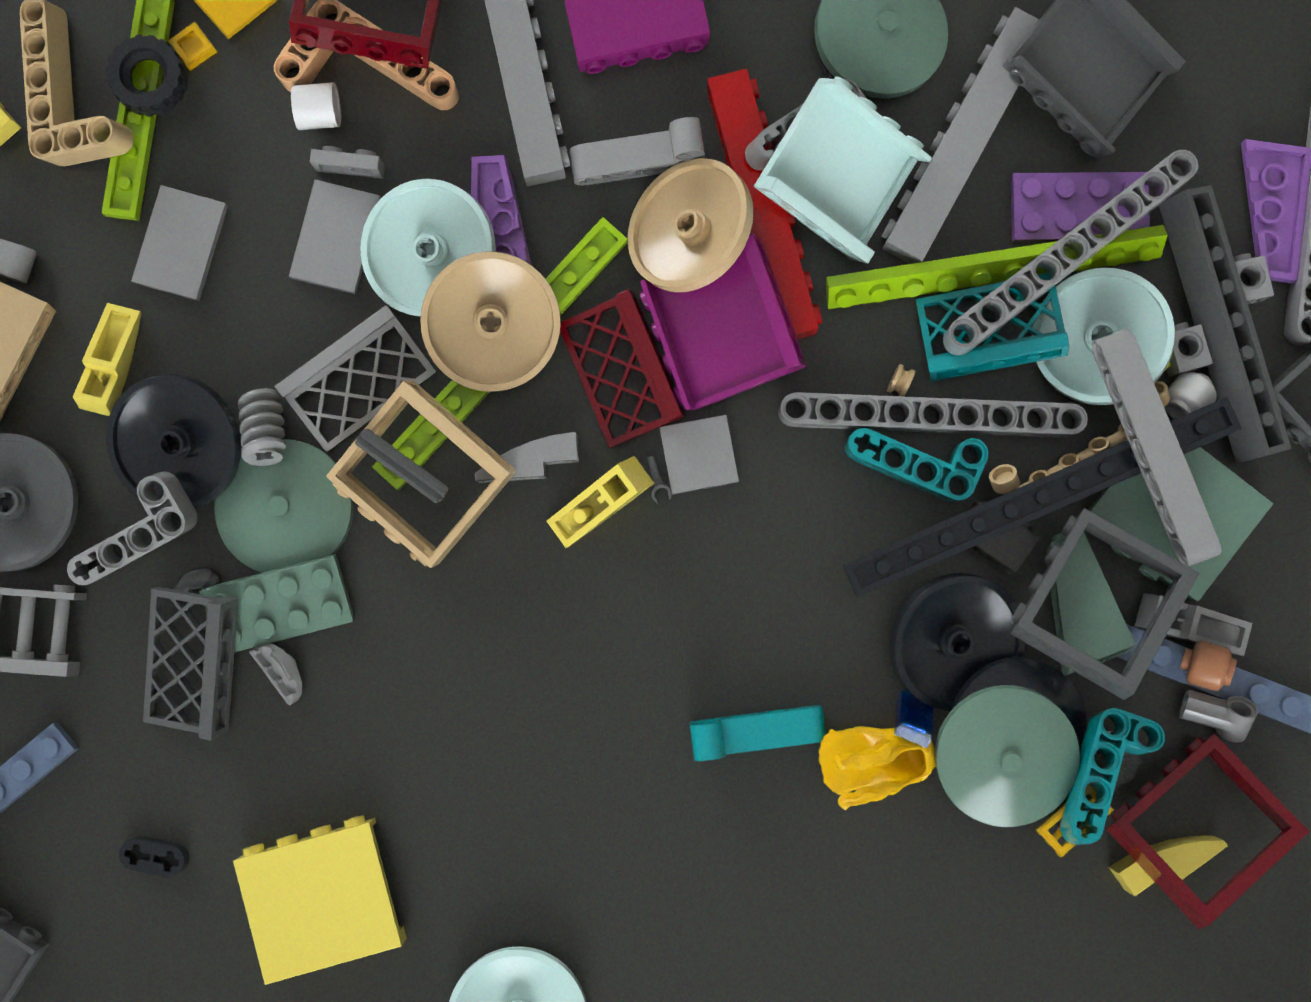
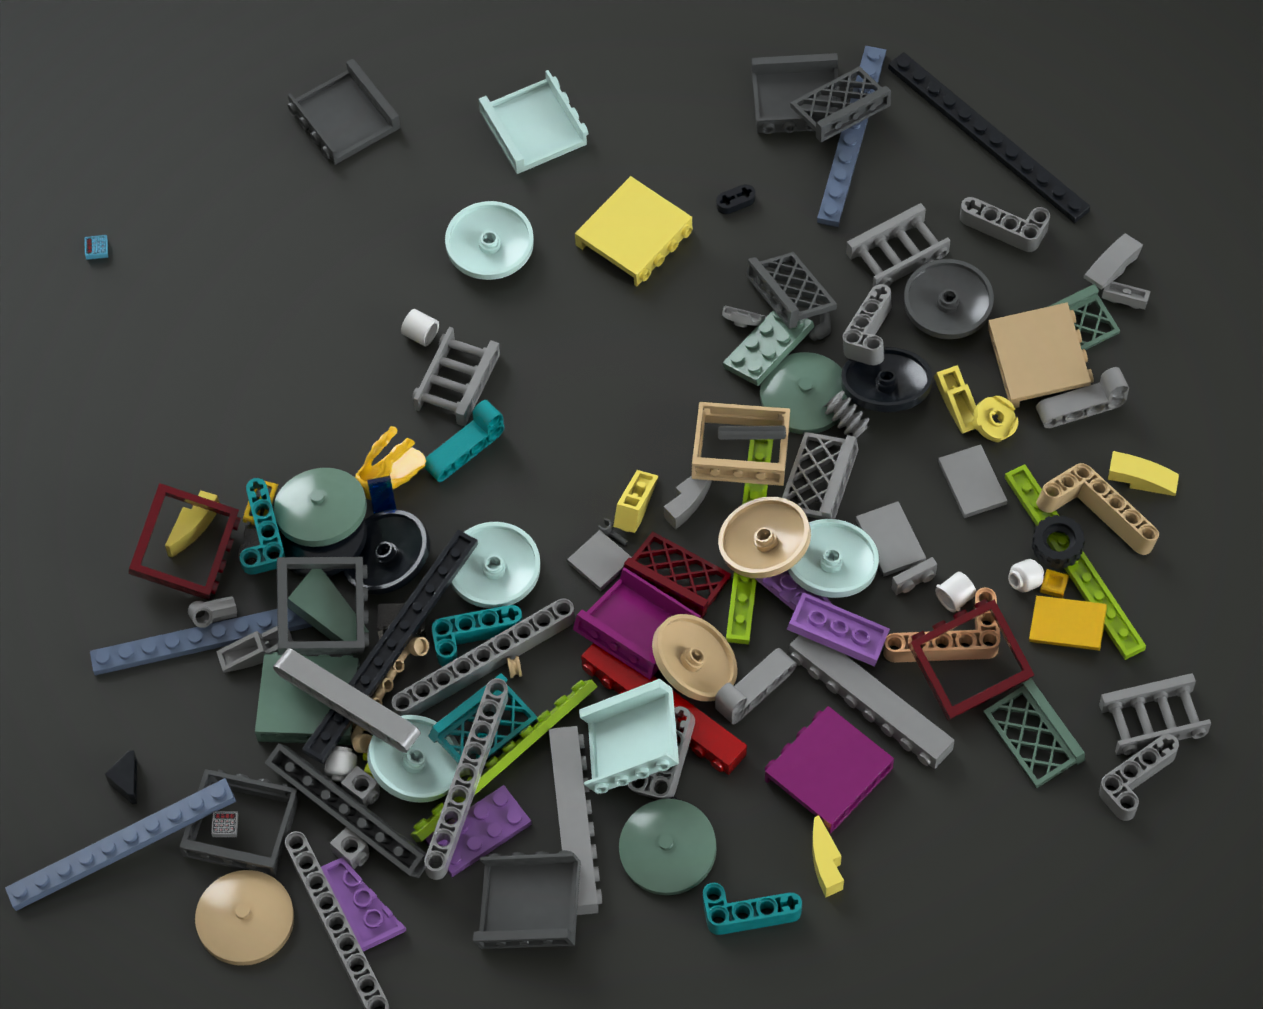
camera: 145 degrees right, 25 degrees down
(102, 302) = (985, 424): none -> light yellow plate
(218, 70) = (1026, 575): none -> white head
(493, 143) = (838, 629): none -> medium lavender plate
(667, 826) = (470, 391): none -> light grey fence
(696, 948) = (420, 327): none -> white piece
(830, 519) = (500, 567): none -> light aqua dish
(1208, 665) = (236, 623): nougat head -> none

